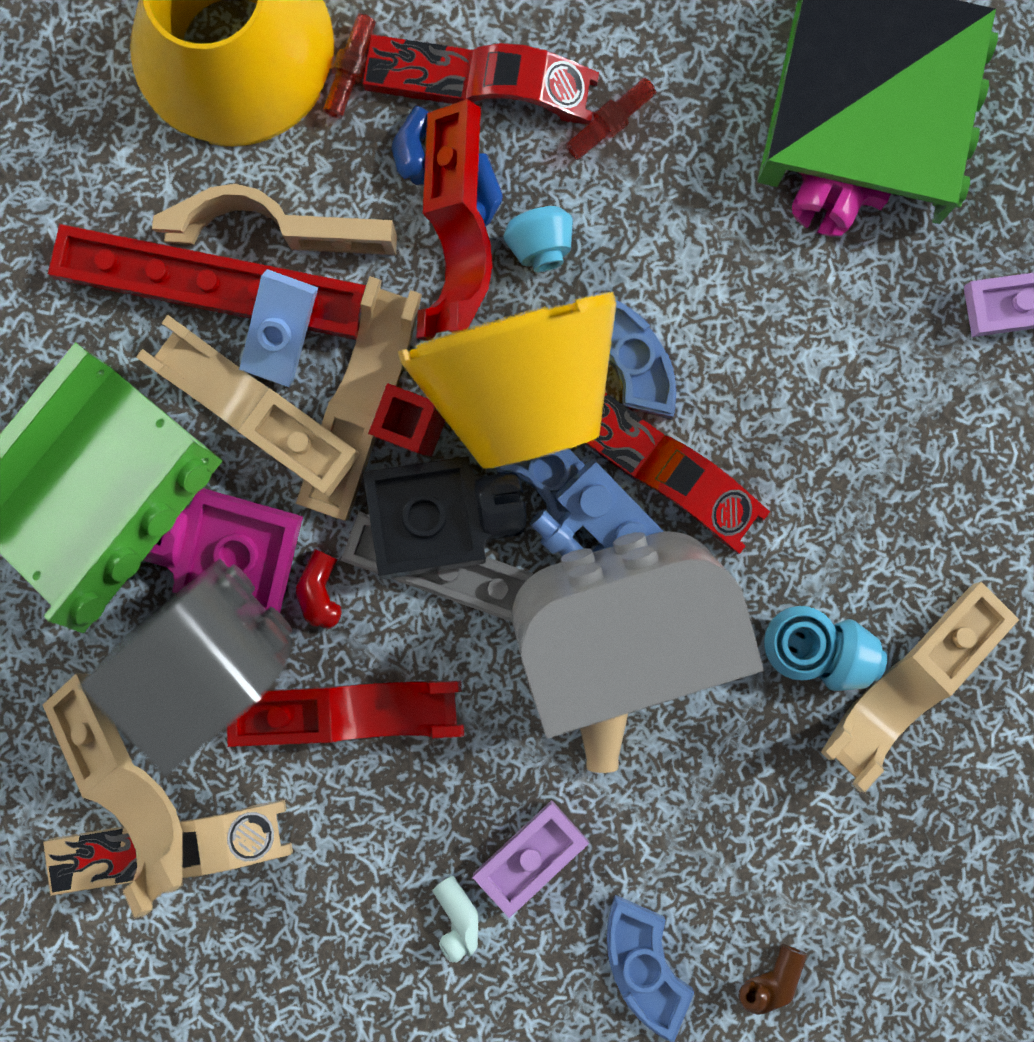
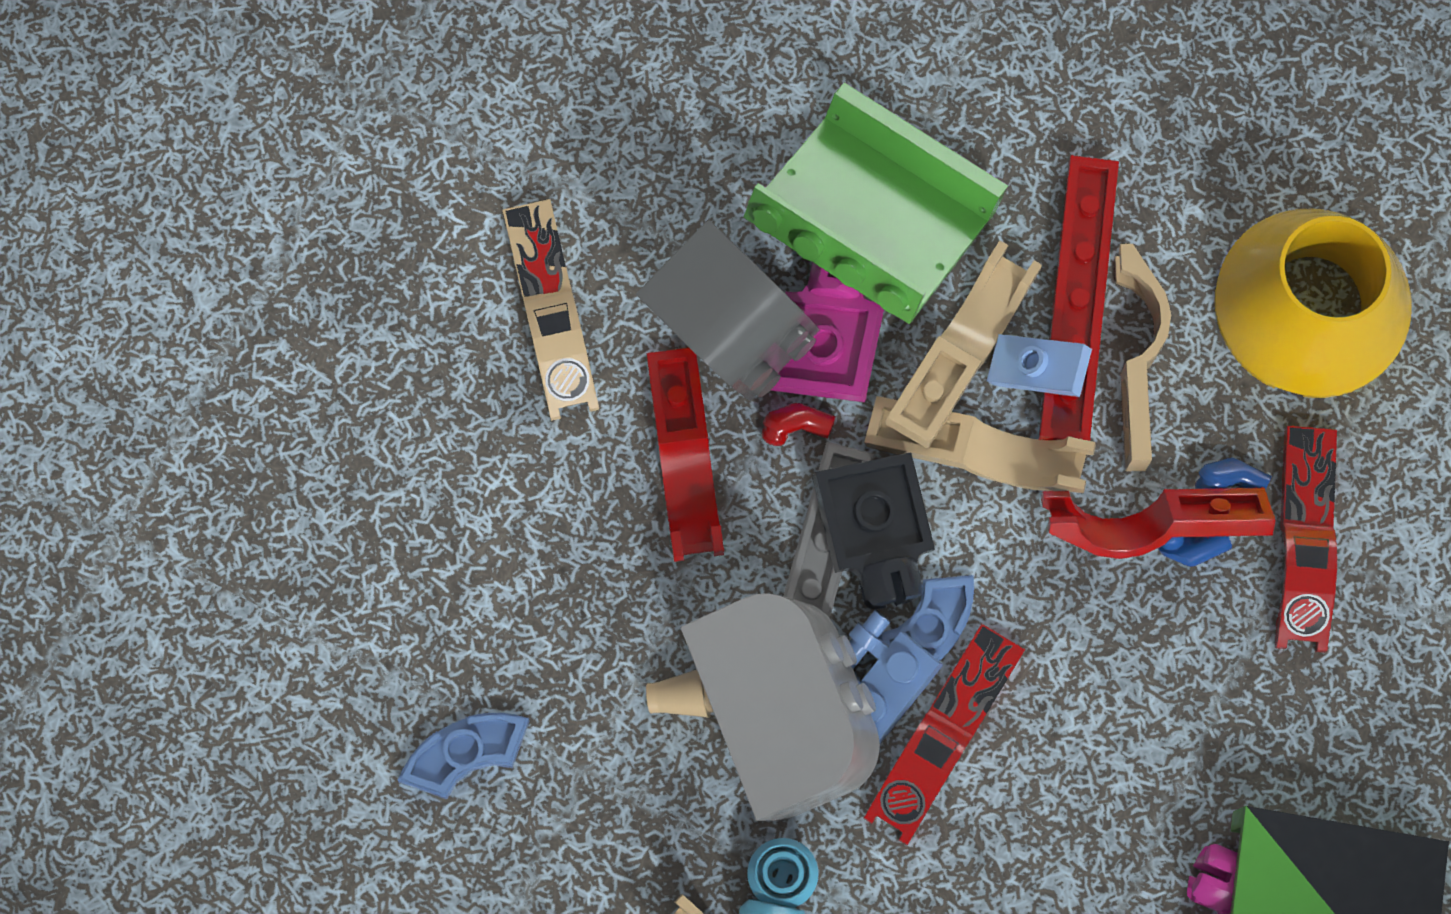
camera: 80 degrees right, 10 degrees down
(110, 778) = (607, 259): tan piece -> none
(349, 66) = (1304, 412): clear red bar -> none
(407, 421) = (963, 491): red brick -> none
(463, 917) = (501, 578): light aqua arm -> none
(521, 380) = (1005, 583): yellow cone -> none
(530, 859) = (561, 635): lavender plate -> none
(540, 237) = (1152, 603): medium azure cone -> none
(611, 118) = (1281, 665): clear red bar -> none
(641, 365) = (1049, 705): medium blue tile -> none
(776, 986) = (452, 874): reddish brown arm -> none

